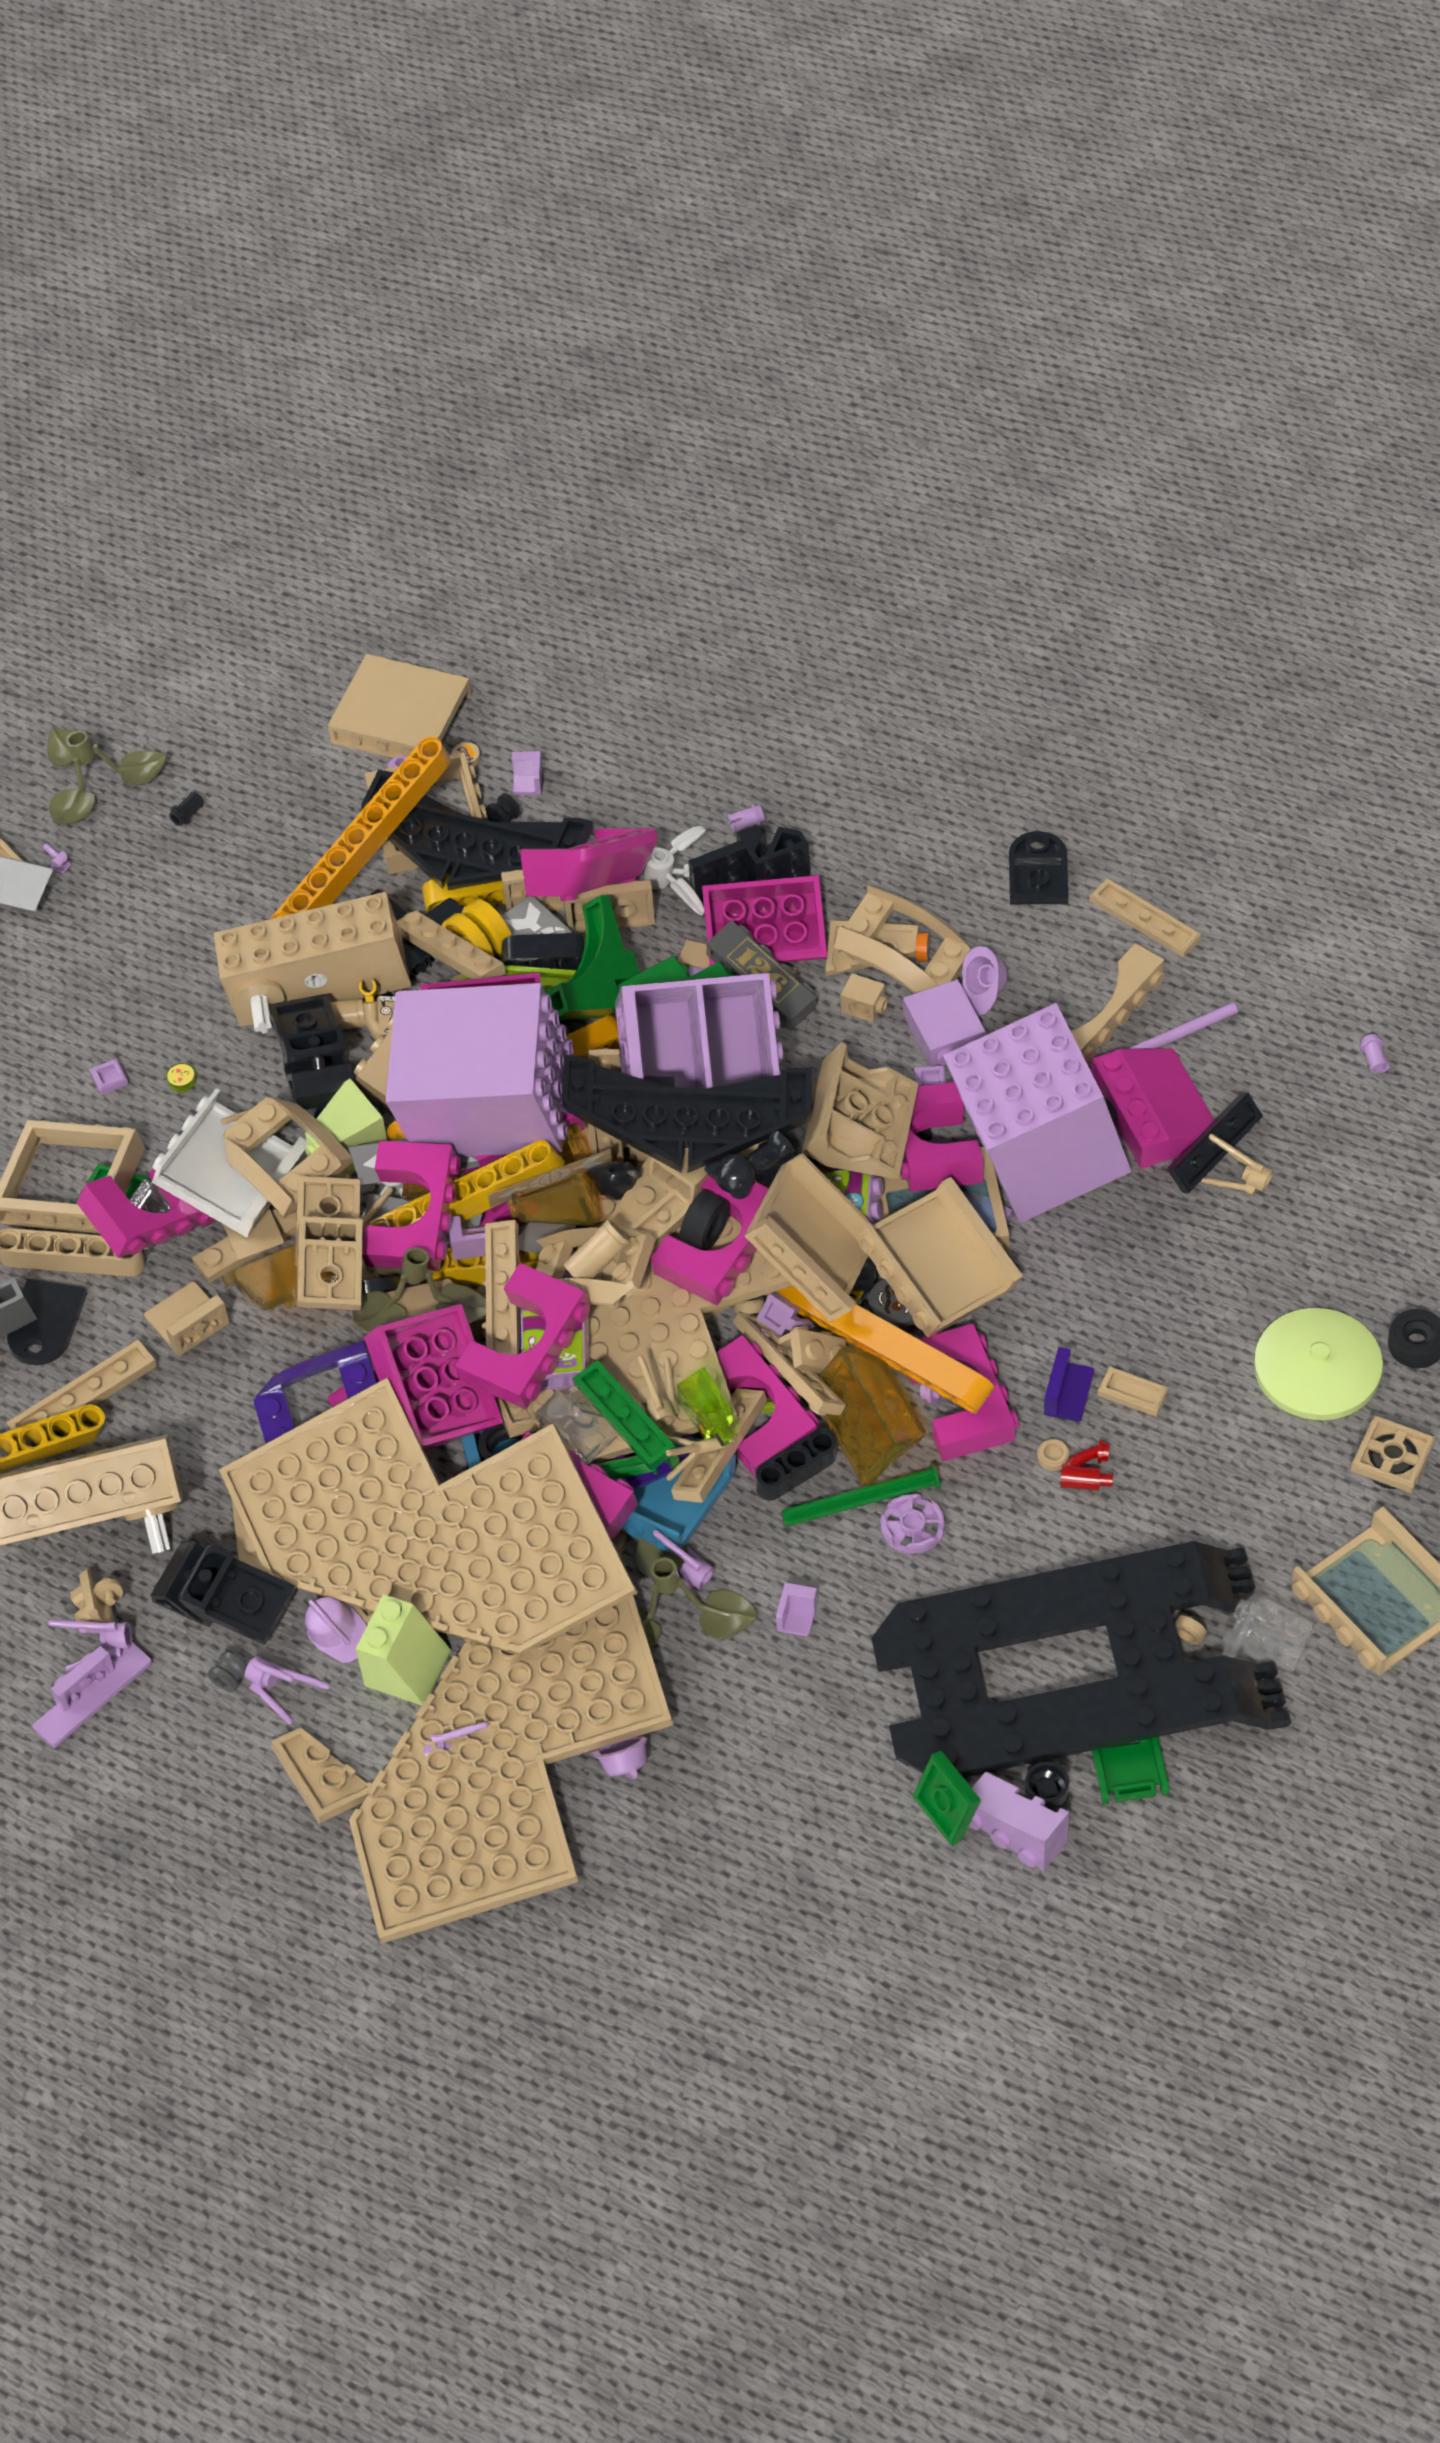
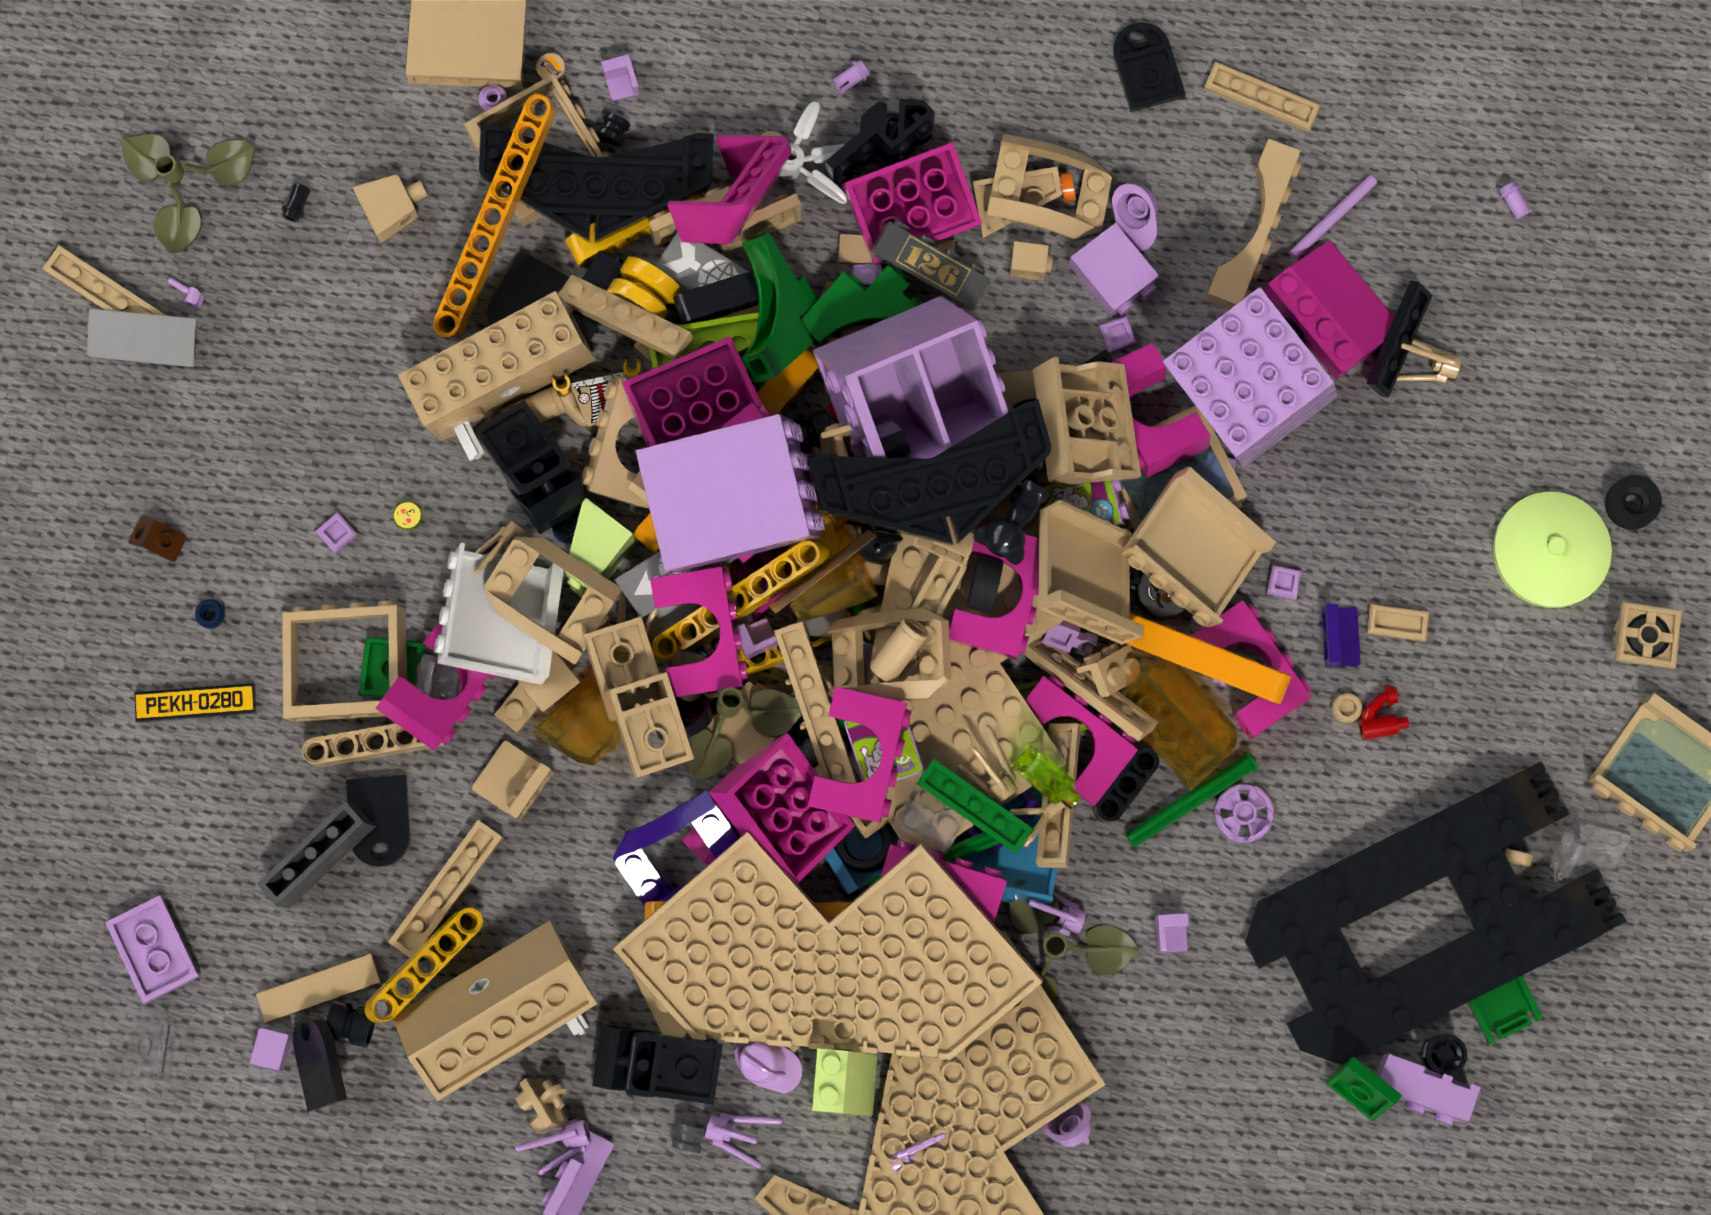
camera: 25 degrees left, 25 degrees up
(270, 825) = (389, 204): none -> tan torso
(1025, 1328) = (1284, 582): none -> lavender tile

